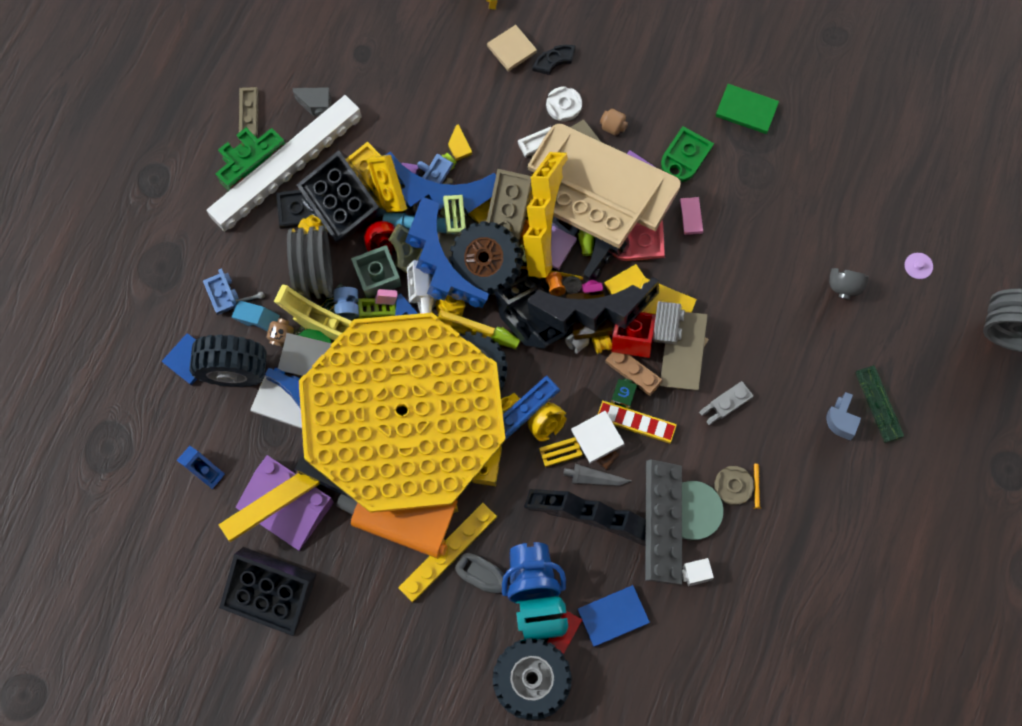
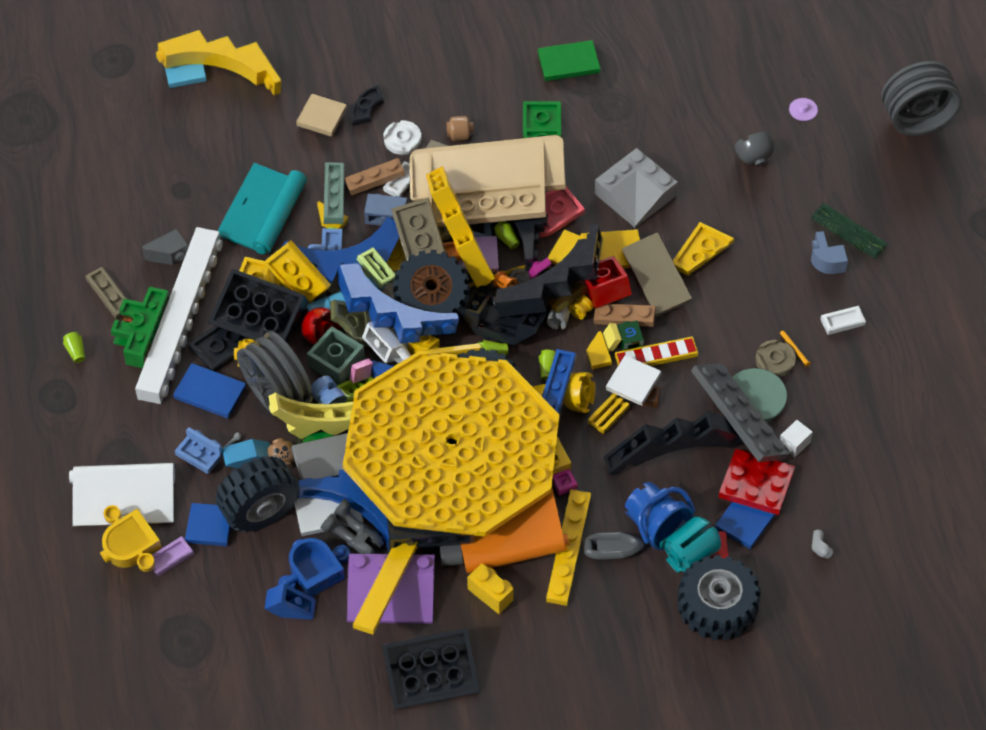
camera: 35 degrees left, 15 degrees down
(118, 337) = (129, 540): none -> yellow piece
(139, 286) = (125, 486): none -> white door
(143, 368) = (171, 555): none -> lavender tile
(191, 145) = (74, 345): none -> lime cone
(239, 445) = (315, 565): none -> blue piece
(264, 242) = (209, 390): none -> blue tile
(283, 442) = (343, 513): none -> dark grey piece
(358, 552) = (490, 588): none -> yellow brick
(410, 105) = (268, 206): none -> teal door
(474, 124) = (334, 193): none -> sand green tile
(482, 492) = (564, 482): none -> dark pink tile
(500, 158) = (379, 208): none -> sand blue brick
(516, 127) = (374, 176): none -> medium nougat plate
(539, 374) = (545, 361): none -> lime cone
(589, 391) = (598, 352): none -> yellow tile
(591, 476) = (650, 417): flat silver bar -> none
(608, 385) = (611, 336): none -> light yellow tile
(633, 597) = (756, 483): none -> red plate
(650, 682) = (819, 546): none -> light grey arm
(668, 323) = (629, 255): light grey brick -> none
(691, 216) = (582, 168): bright pink tile -> none
(721, 259) = (635, 187): none -> light grey slope
(727, 402) = (723, 297): light grey hinge -> none
(738, 346) = (700, 248): none -> yellow wing
(816, 485) = (843, 320): none -> white tile

